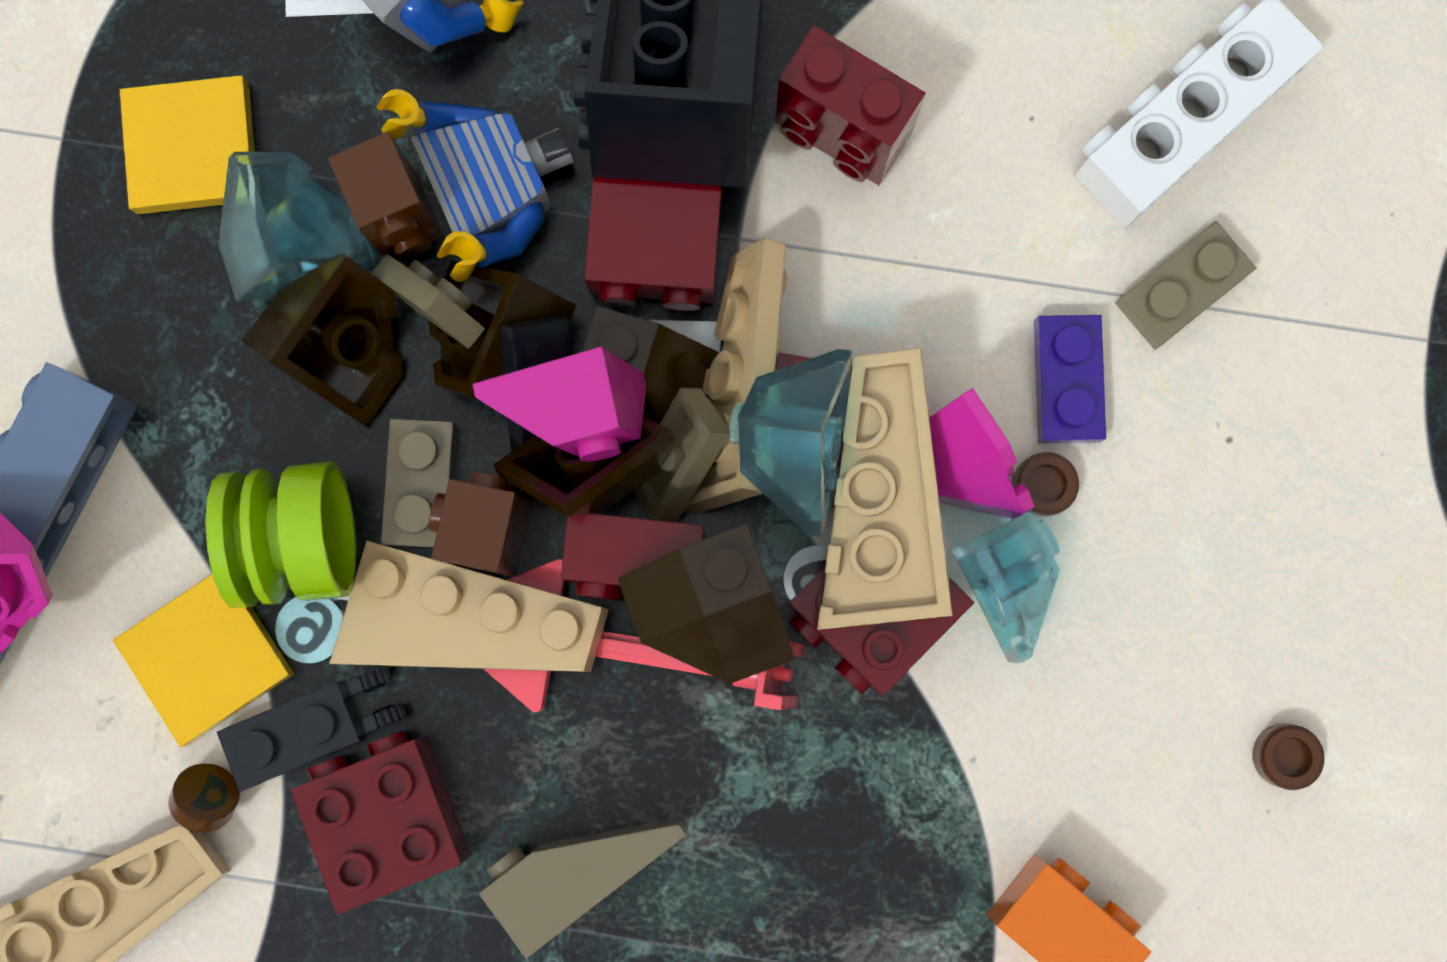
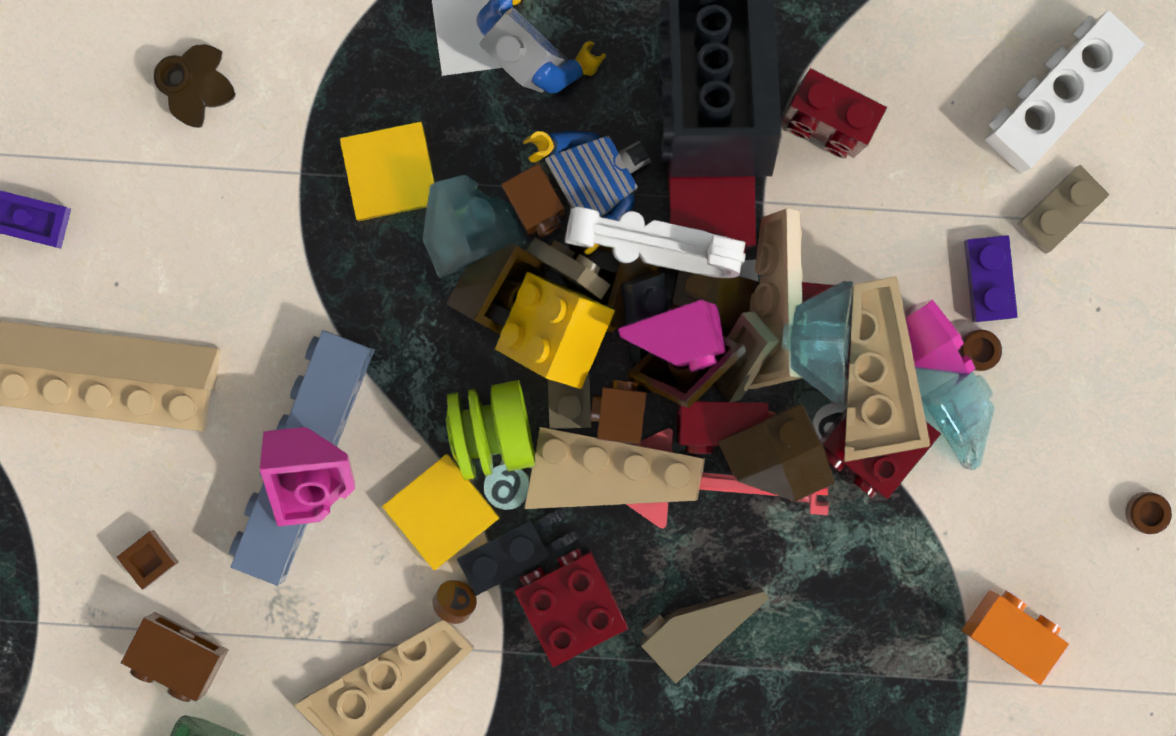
camera: 10 degrees left, 5 degrees up
(393, 391) = (554, 330): none -> yellow piece
(558, 268) = (657, 243): none -> white piece

